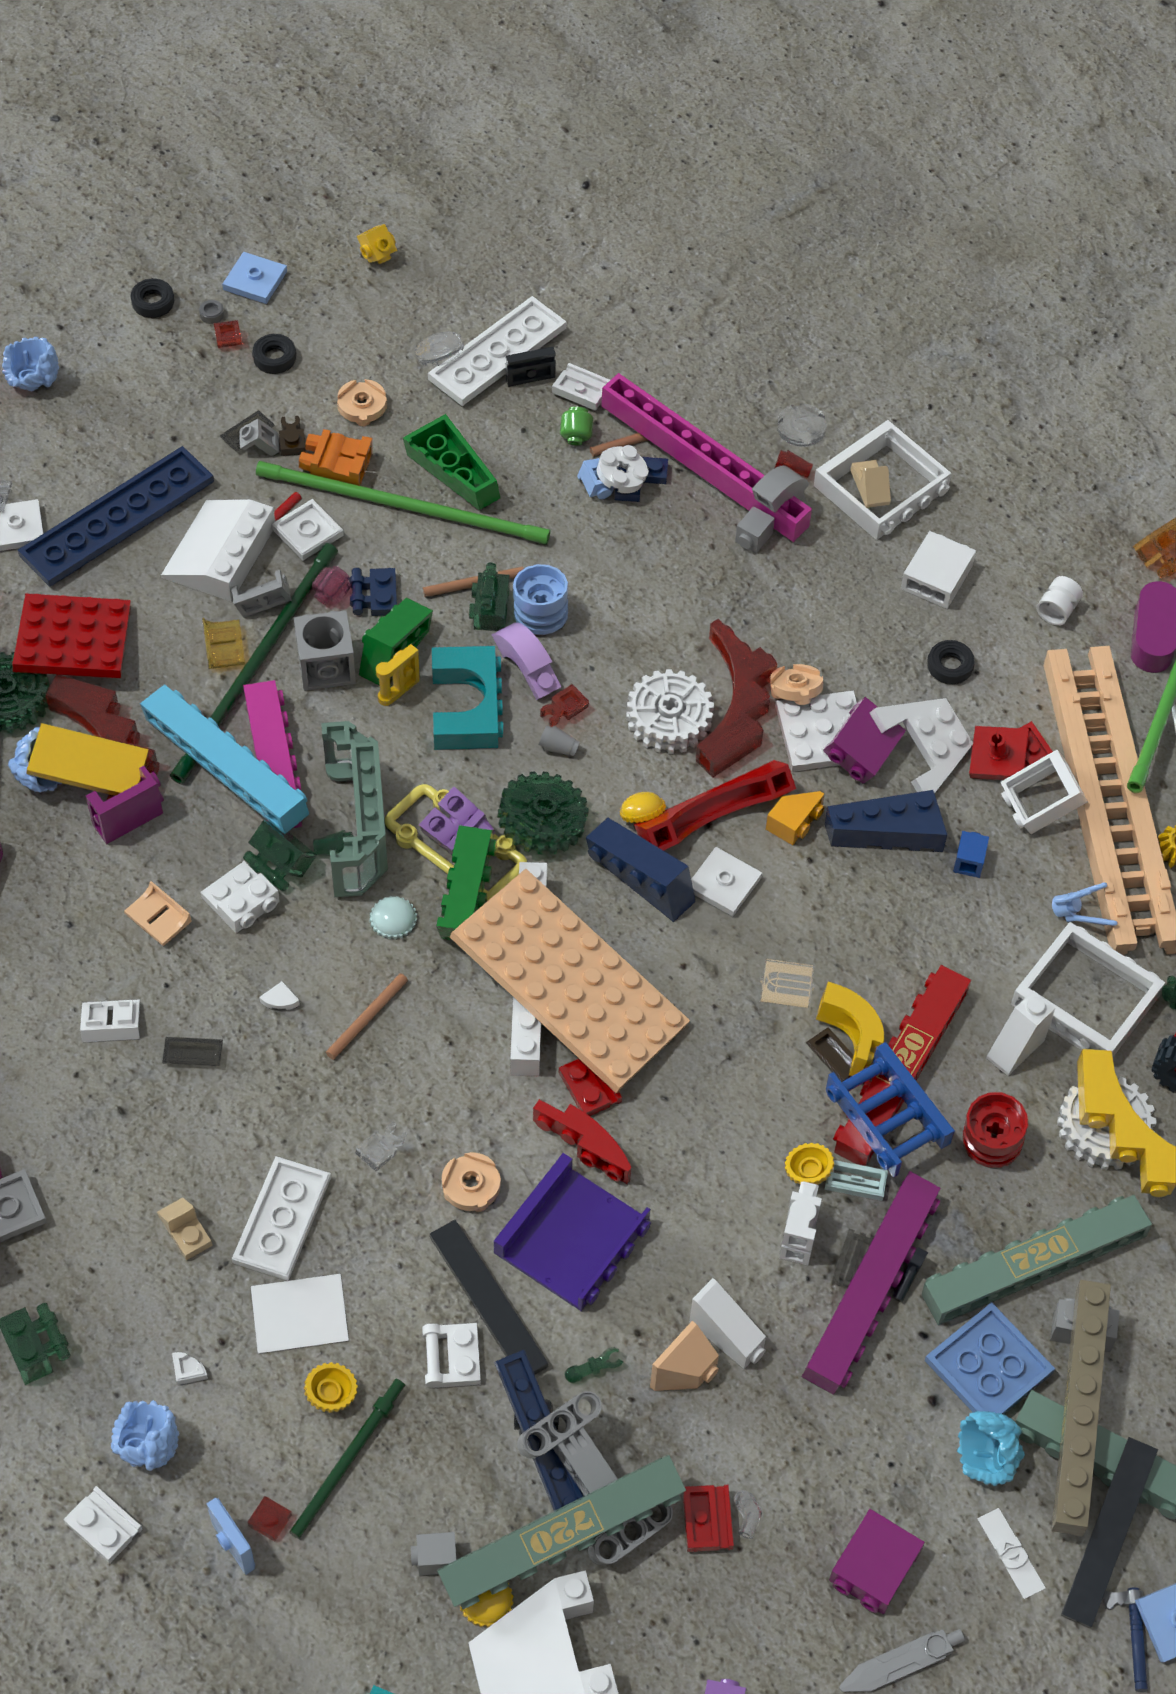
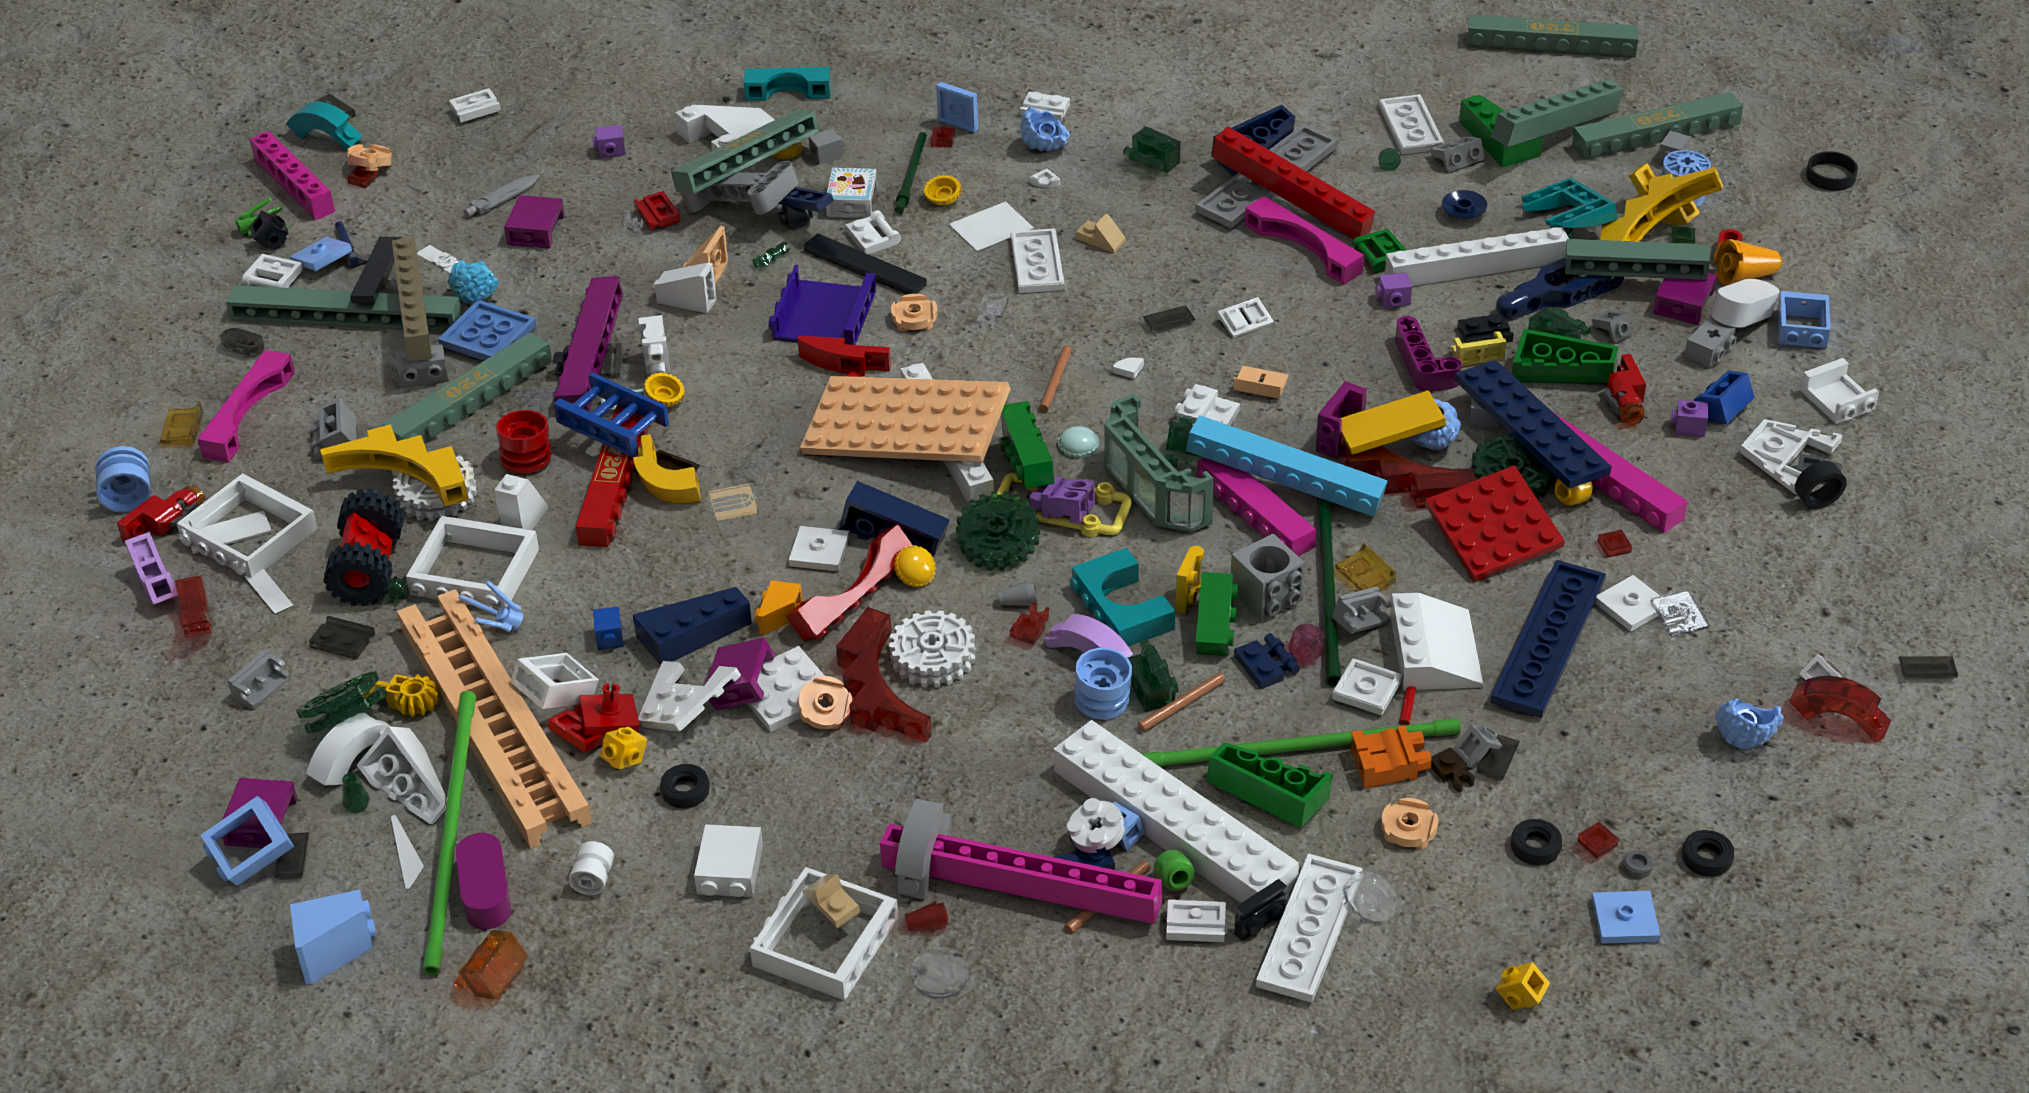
camera: 160 degrees right, 15 degrees down
(445, 1436) = (851, 192): none -> panel
(550, 471) = (1173, 813): none -> white brick
(998, 705) = (623, 747): none -> yellow brick

